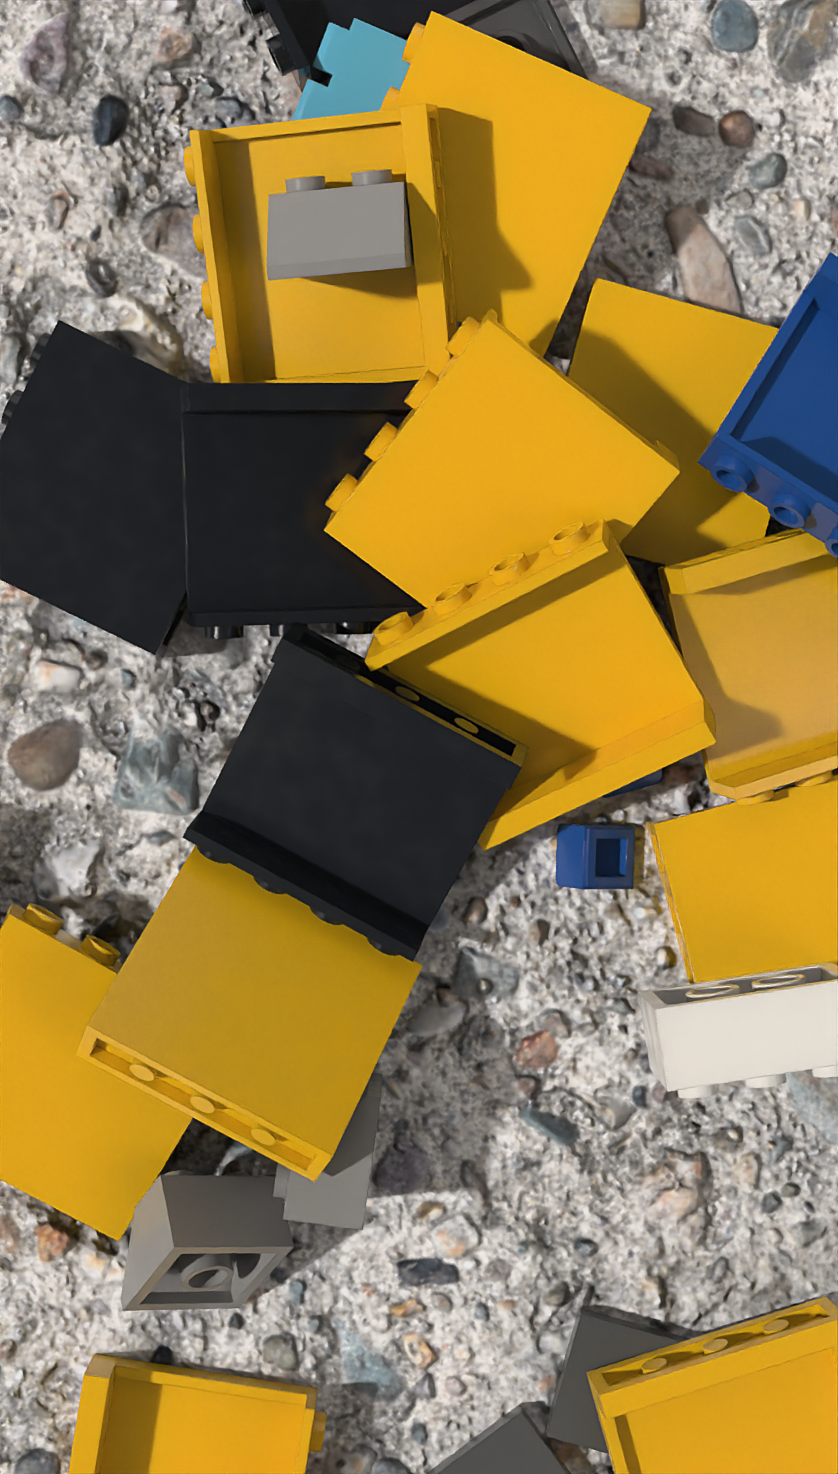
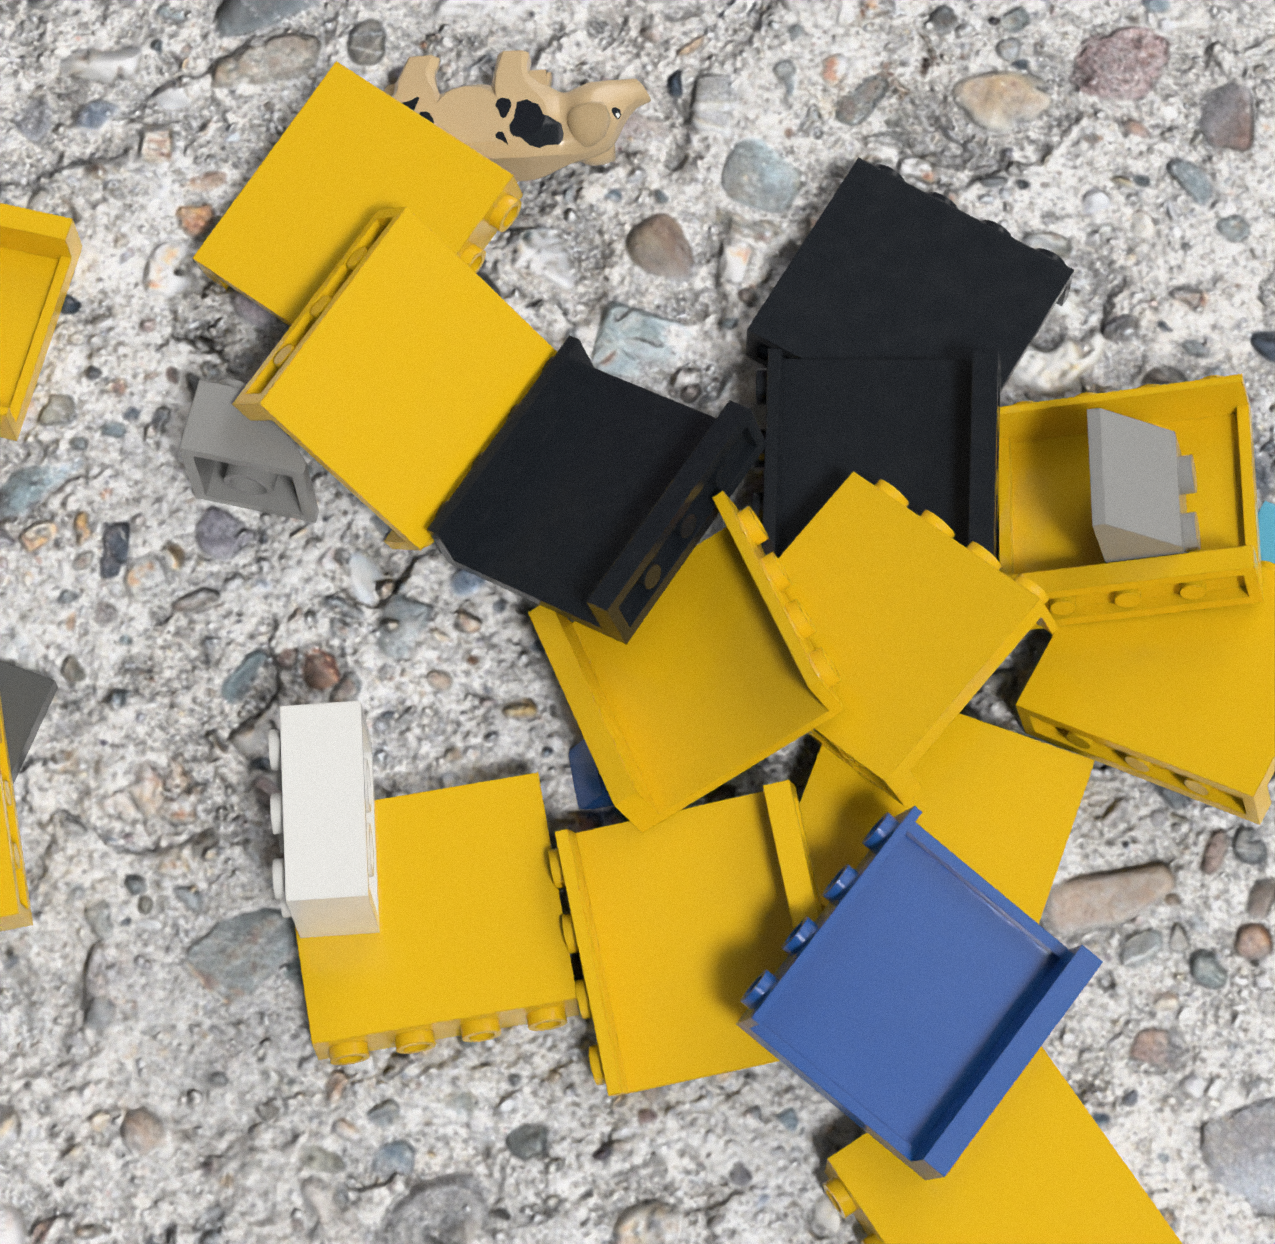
camera: 100 degrees right, 20 degrees down
(203, 1241) = (178, 327): light grey slope -> none
(595, 856) = (509, 738): blue slope -> none

